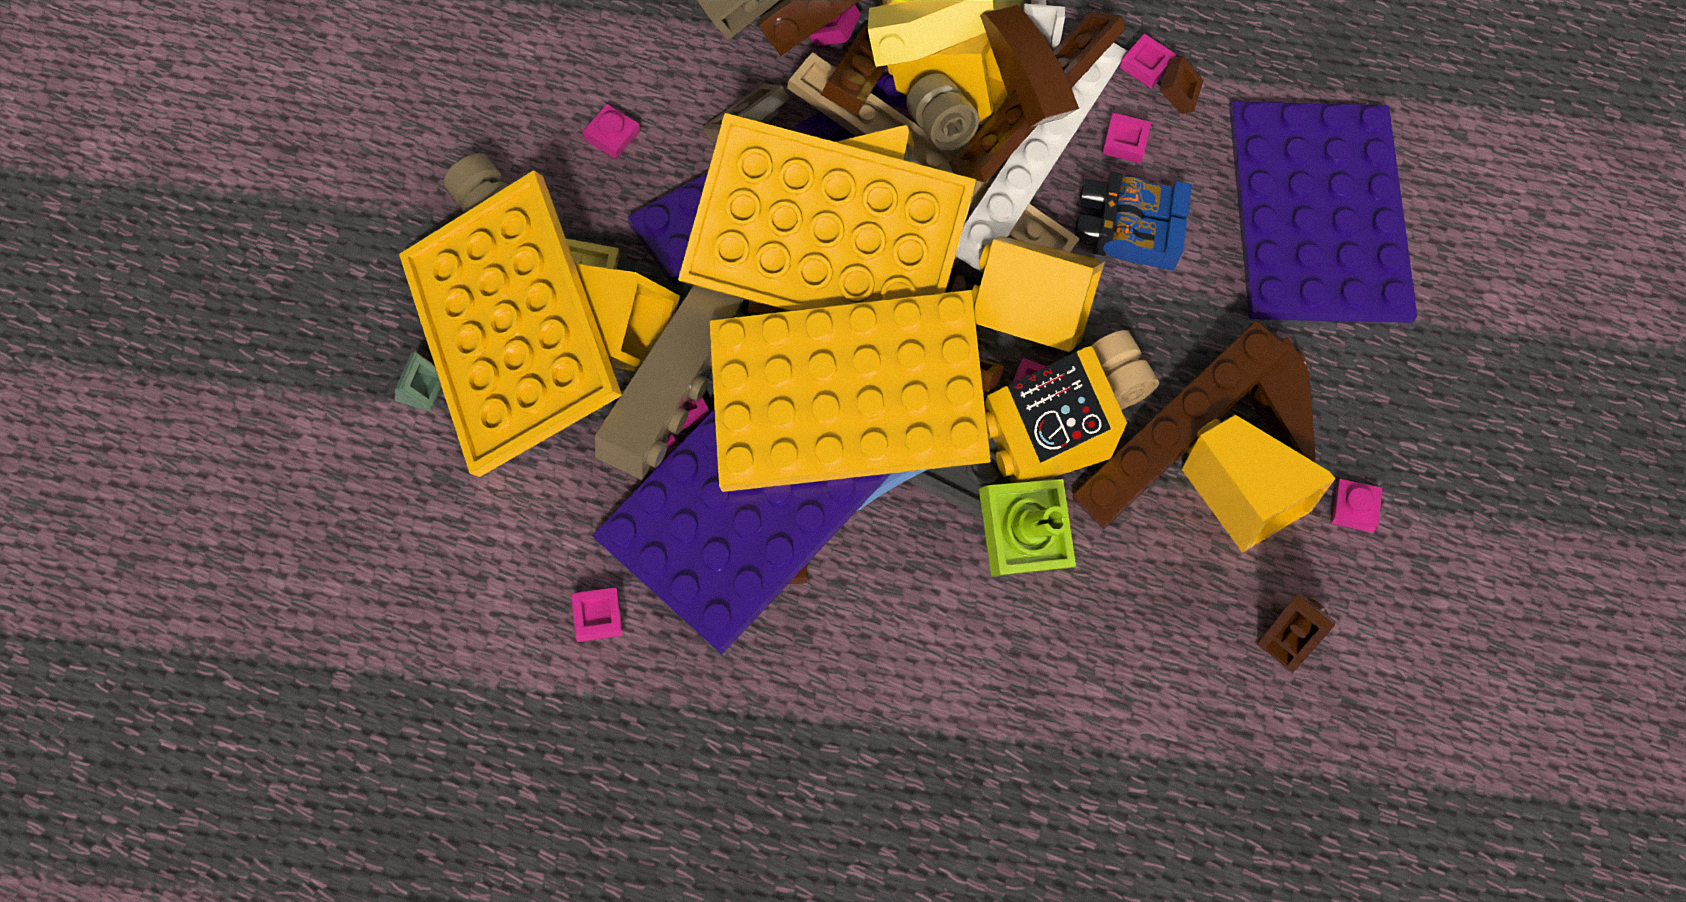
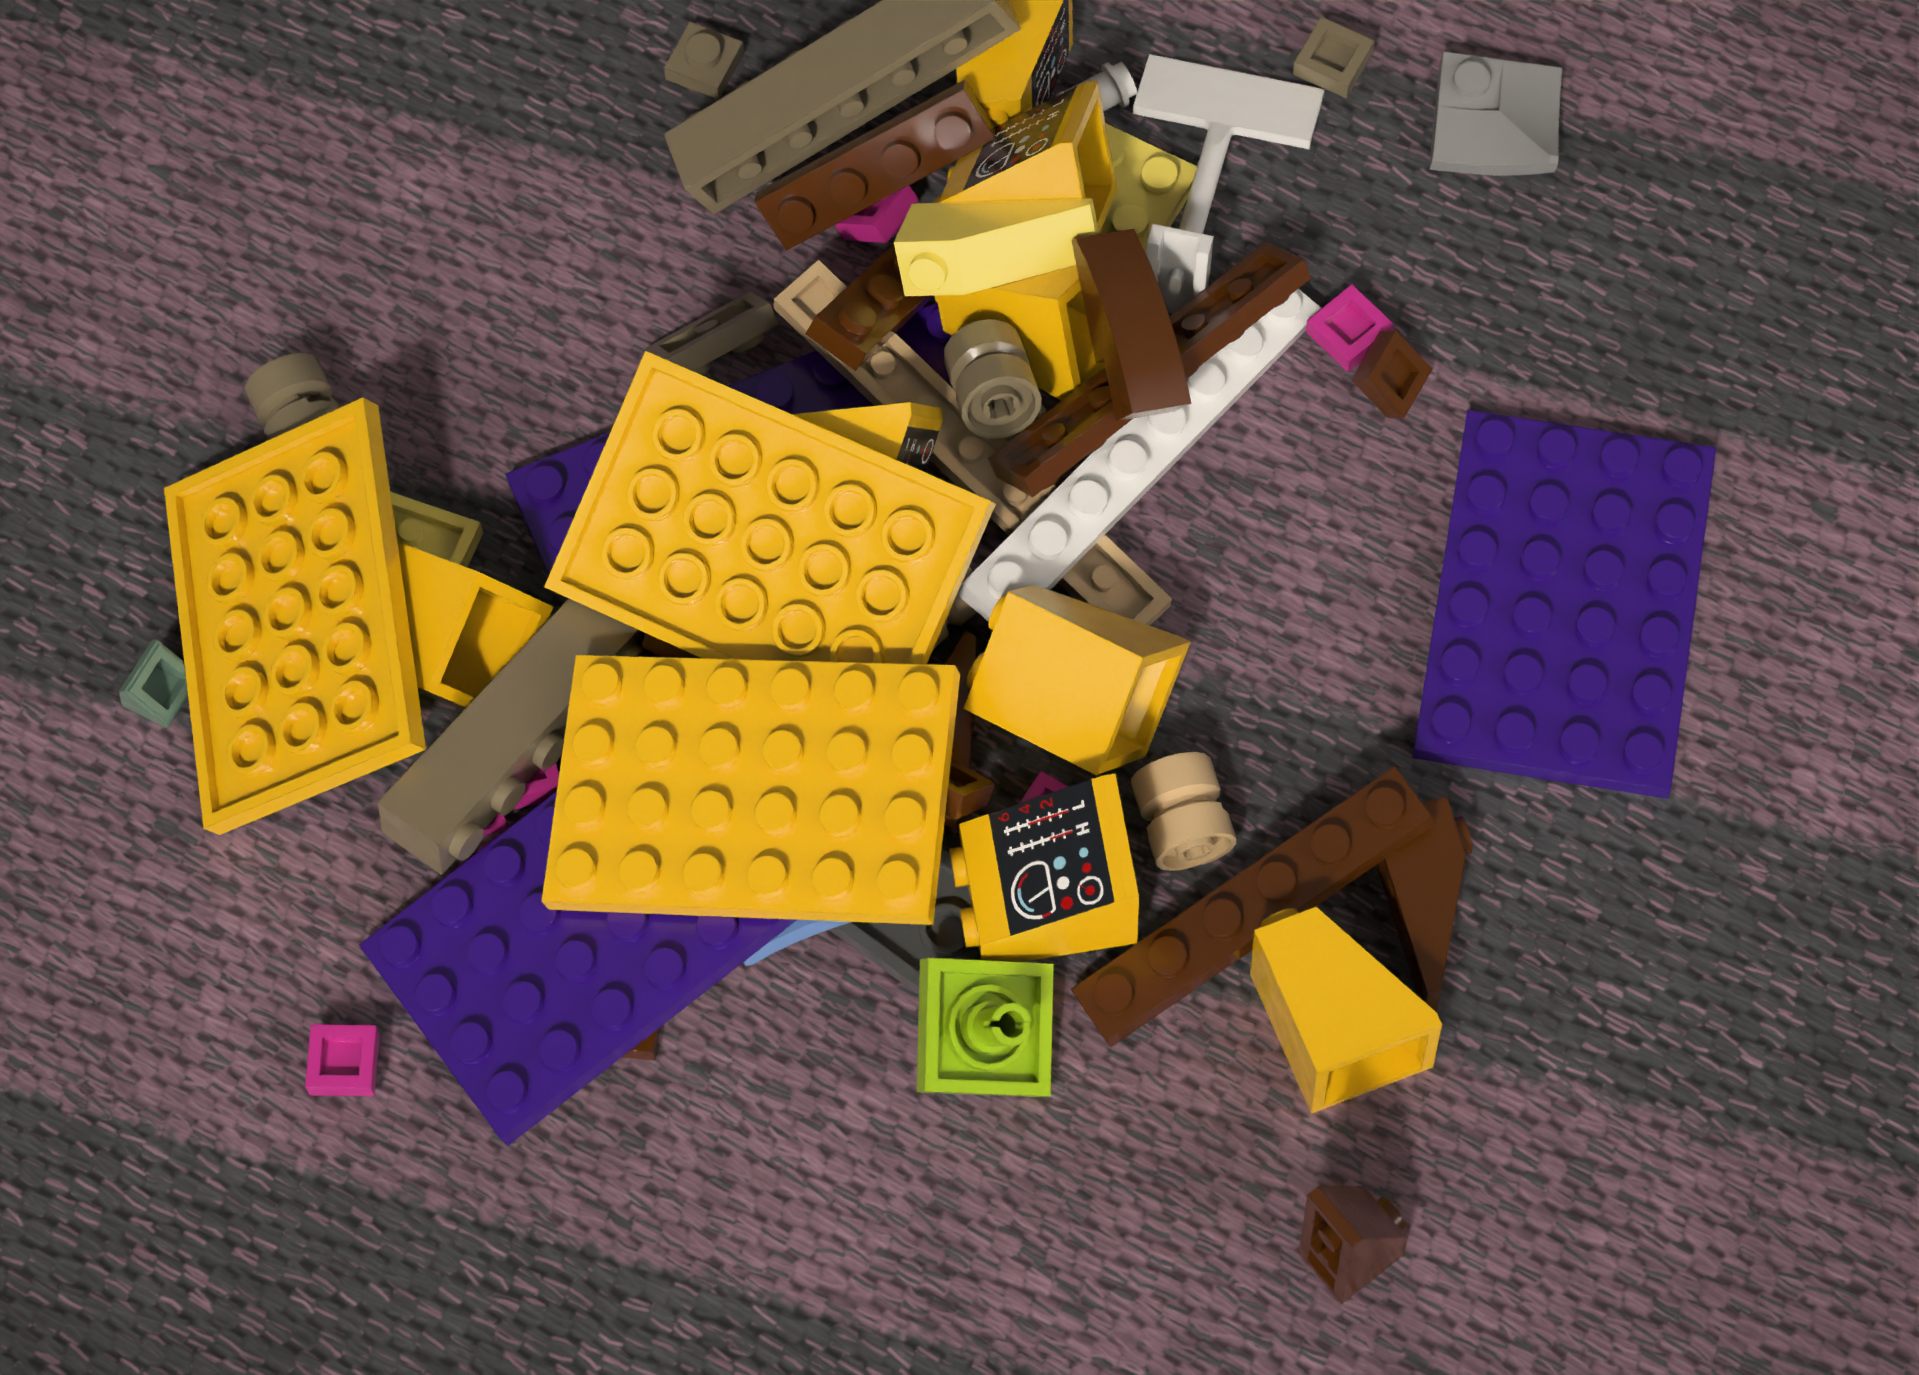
camera: 20 degrees right, 0 degrees up
(611, 131) = (509, 338): dark pink plate -> none
(1126, 138) = (1286, 448): dark pink plate -> none
(1135, 219) = (1266, 581): hips -> none
(1356, 505) = (1501, 1069): dark pink plate -> none

